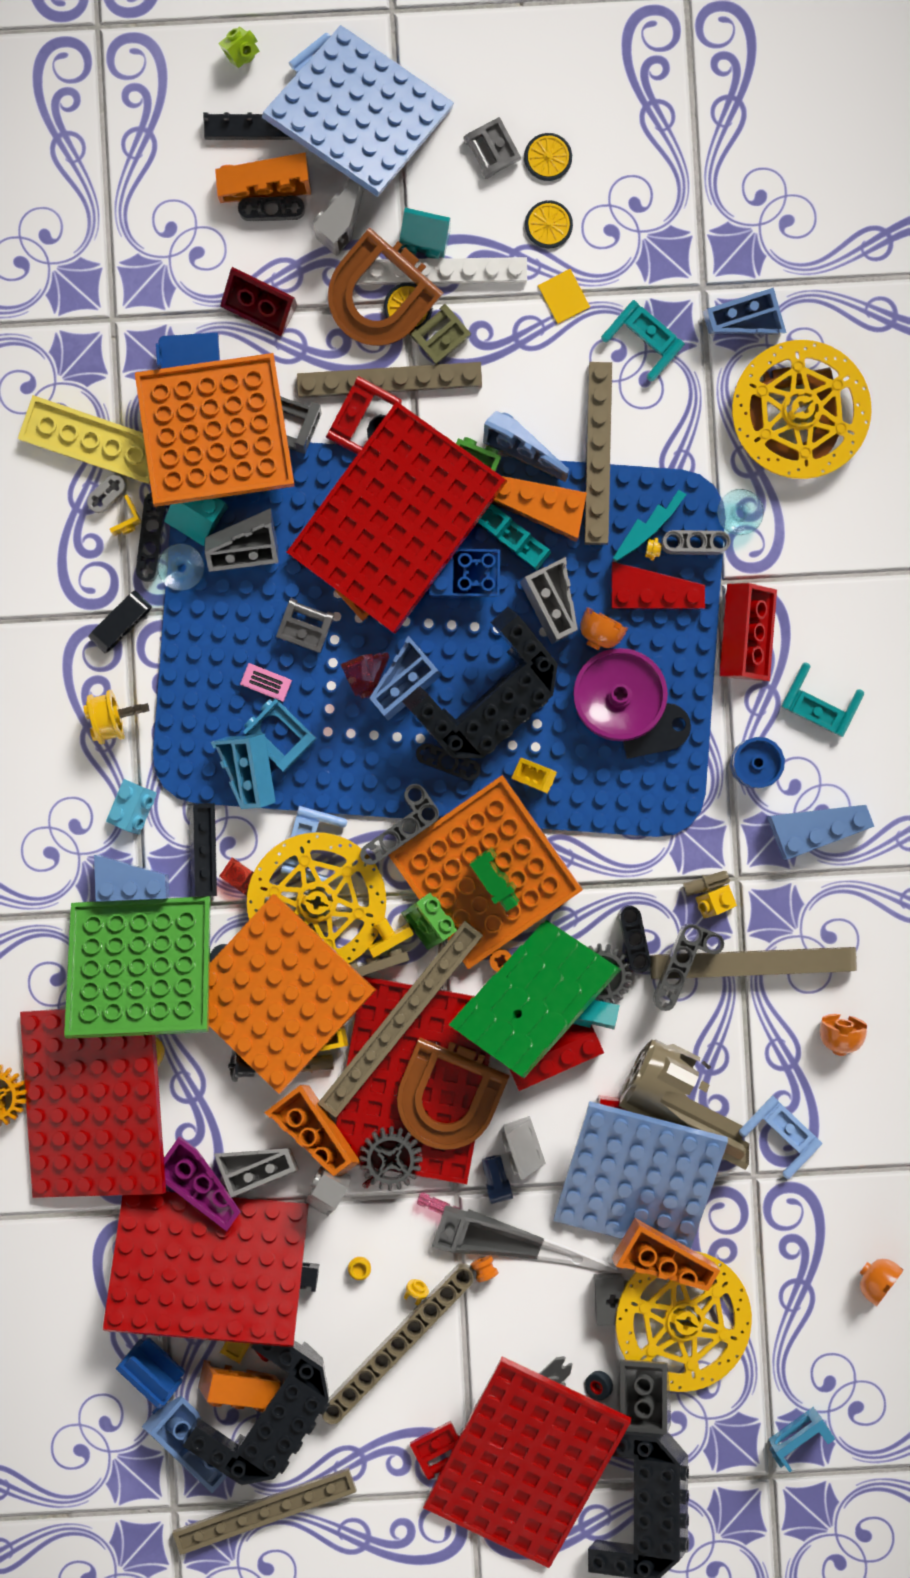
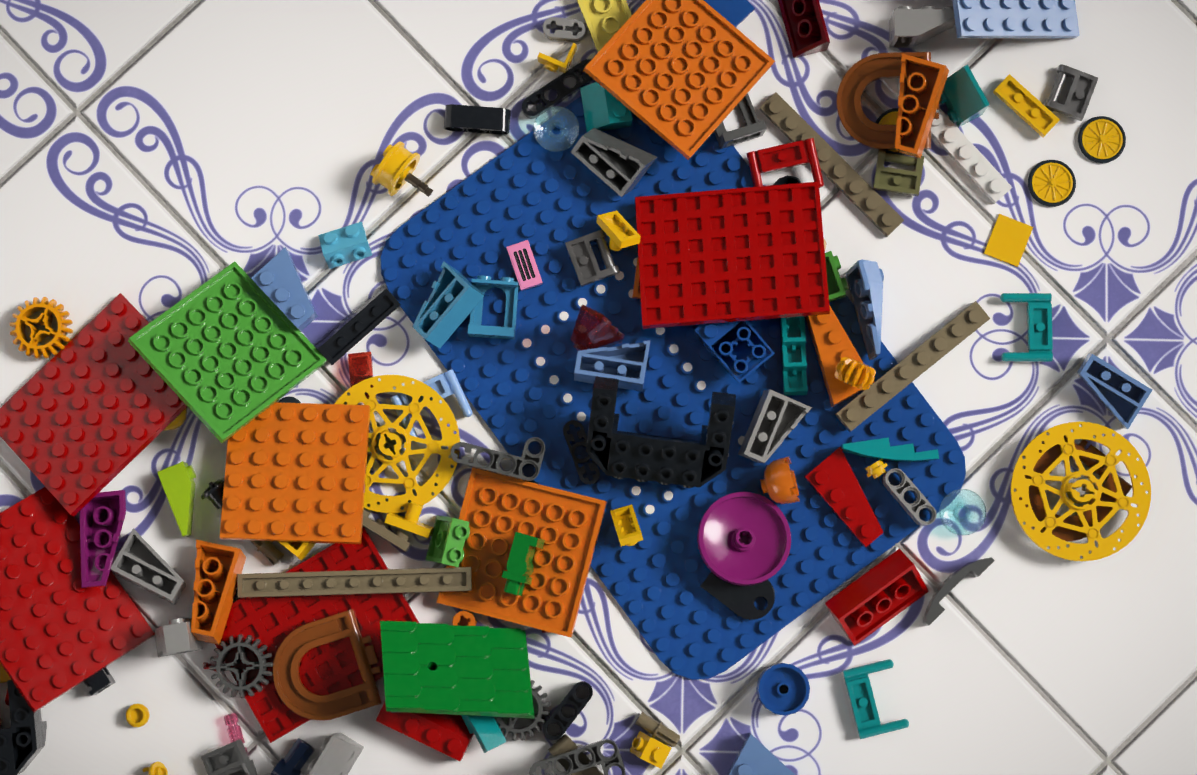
camera: 55 degrees right, 5 degrees down
(216, 1094) = (180, 491): none -> lime slope
(301, 587) = (618, 230): none -> yellow tile
(399, 268) = (917, 102): none -> orange wedge
(473, 191) = (1026, 105): none -> yellow plate
(569, 501) = (855, 373): none -> light orange gear
(793, 597) = (934, 609): none -> dark grey slope

